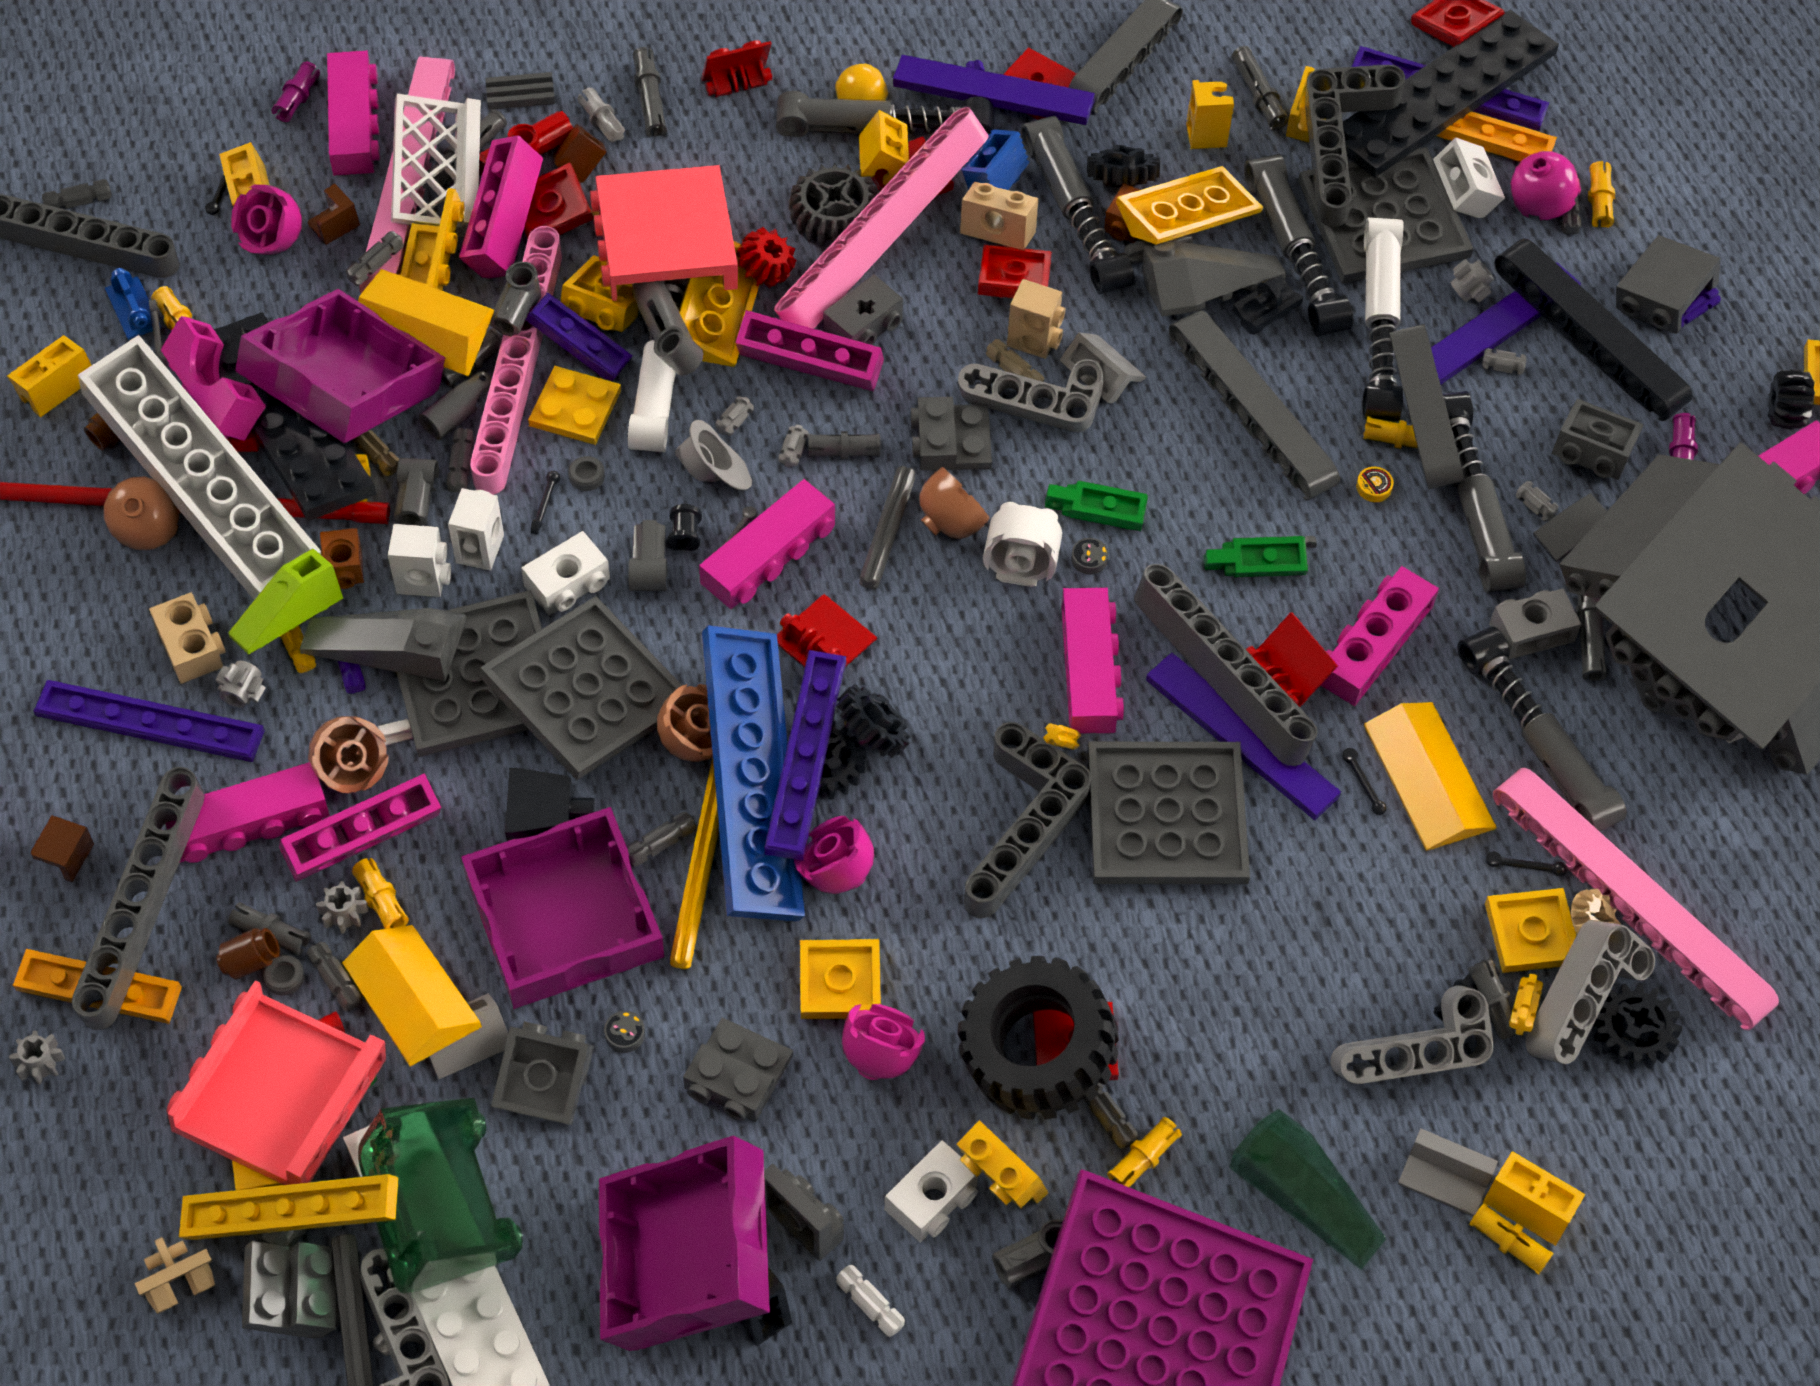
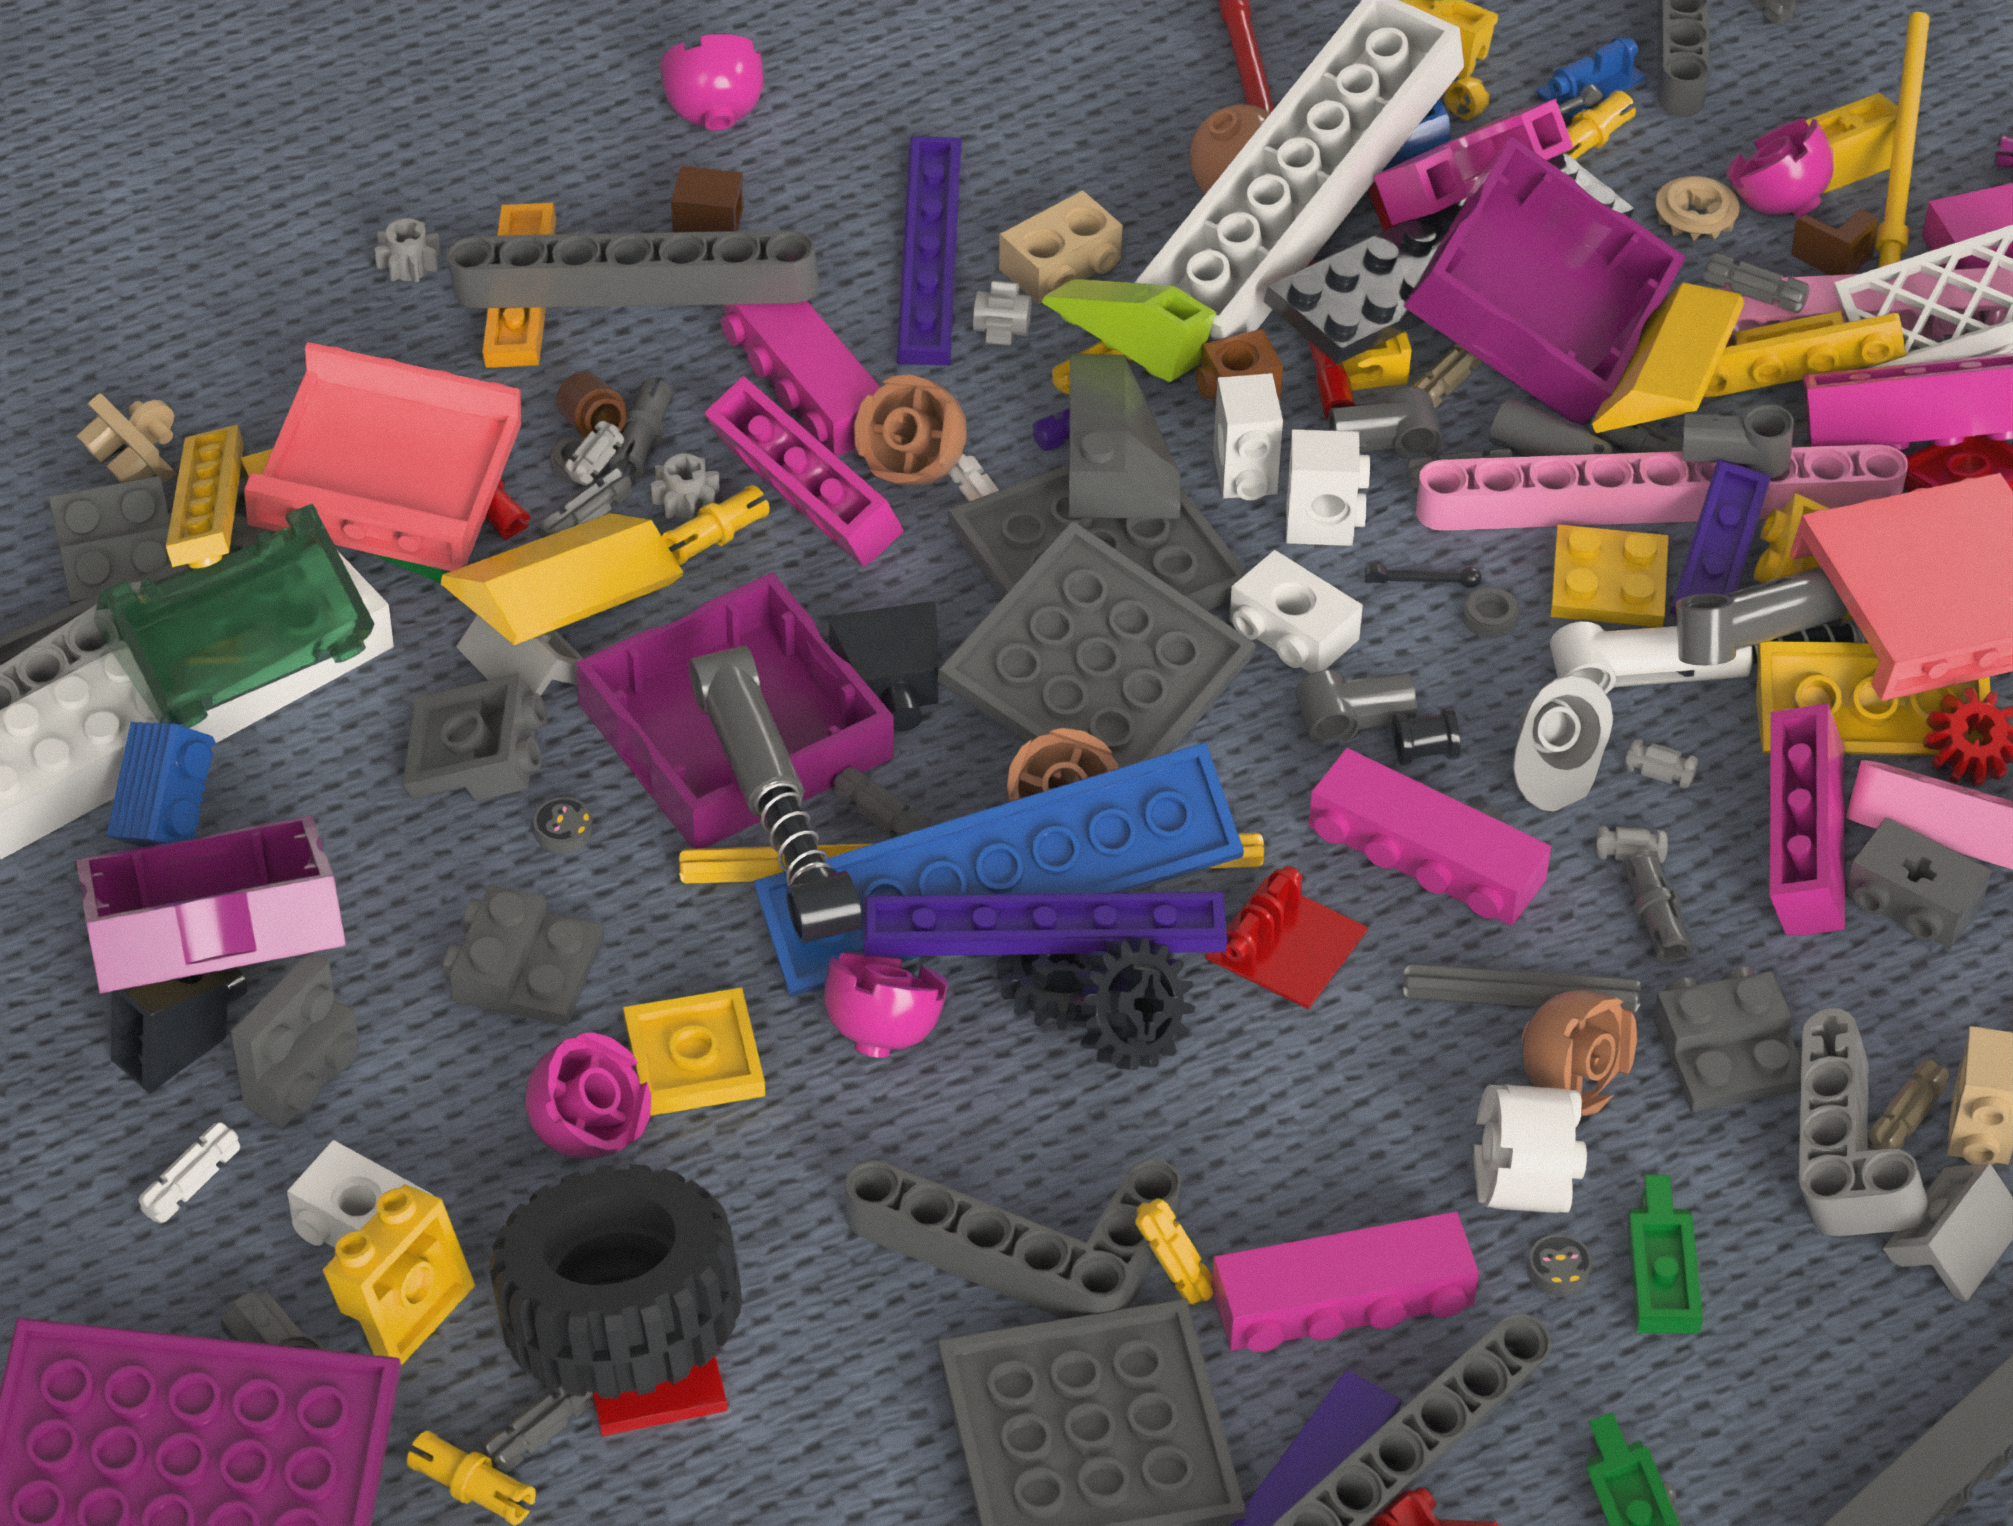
camera: 80 degrees right, 10 degrees down
(258, 274) = (1703, 193): none -> tan gear
(277, 153) = (1893, 233): none -> yellow bar
(297, 957) = (594, 453): none -> light grey piece
(551, 1274) = (160, 784): none -> blue brick
(575, 893) = (729, 691): none -> piece

